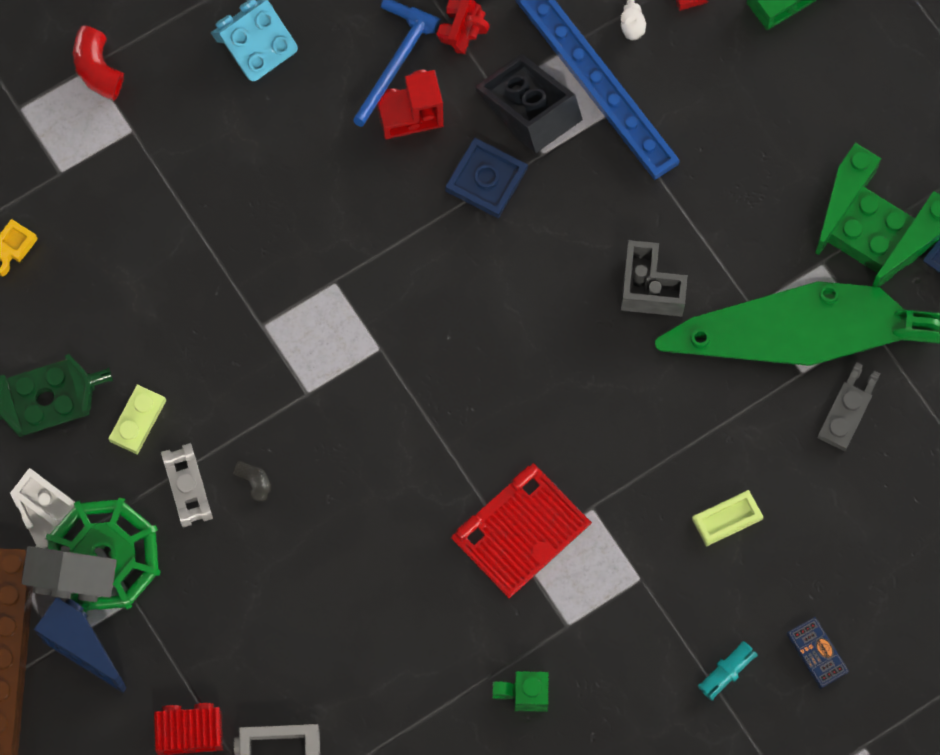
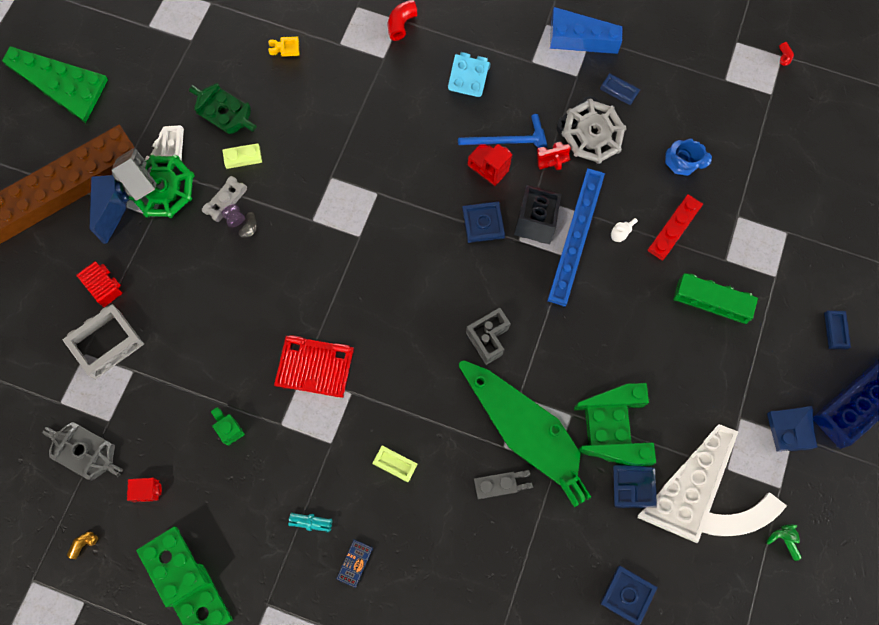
camera: 50 degrees right, 0 degrees up
(224, 489) = (232, 215): none -> clear purple wheel

